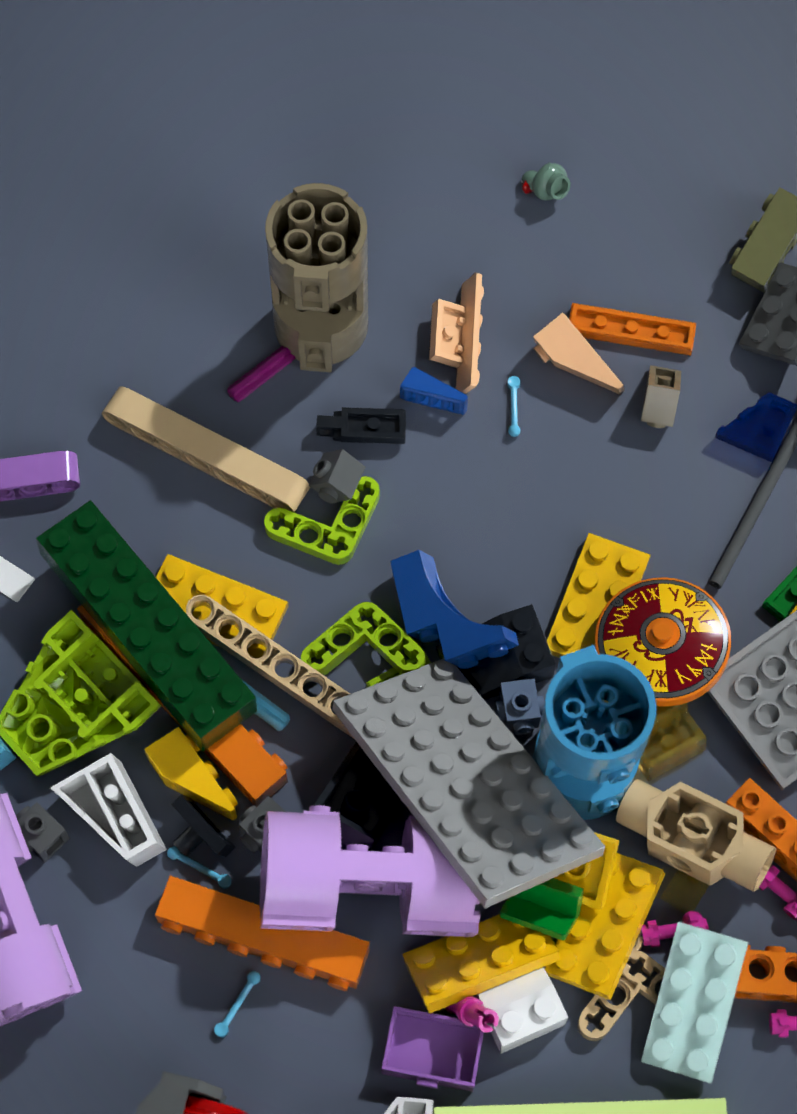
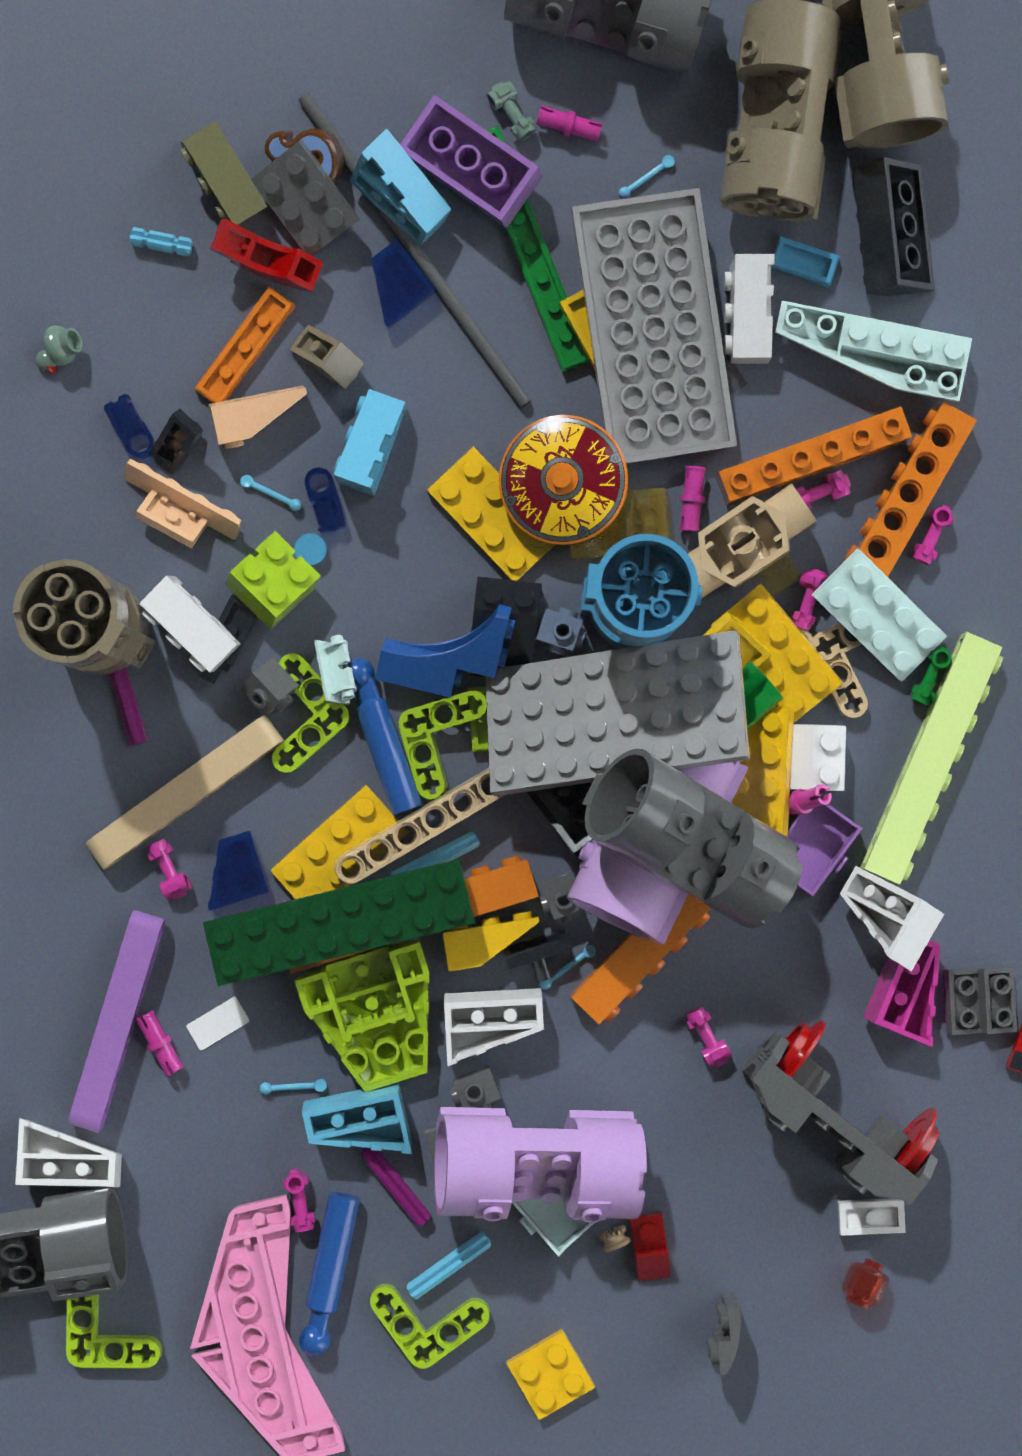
camera: 65 degrees left, 20 degrees up
(117, 480) = (175, 884): none -> dark pink bar
(153, 526) = (237, 871): none -> clear blue wing
(178, 1051) = (715, 1052): none -> dark pink bar
(222, 1029) = (712, 1008): medium azure hinge -> none
(337, 595) = (383, 740): none -> blue piece
(360, 378) = (189, 624): none -> white wedge
(379, 891) = (692, 838): none -> dark grey cylinder
(380, 523) = (336, 681): none -> light aqua hinge
(431, 392) = (217, 567): blue slope -> none
(435, 435) = (272, 580): none -> lime piece
(480, 460) = (311, 549): none -> dark azure tile
(511, 266) = (128, 424): none -> clear blue piece
(518, 304) = (176, 441): none -> black tile
(530, 454) = (327, 503): none -> clear blue piece
(603, 462) = (369, 442): none -> medium azure wedge
(681, 1089) = (937, 660): none -> green bar
(684, 223) = (161, 241): none -> medium azure axle
(712, 772) = (692, 498): none -> dark pink pin
(718, 305) = (265, 258): none -> red arch

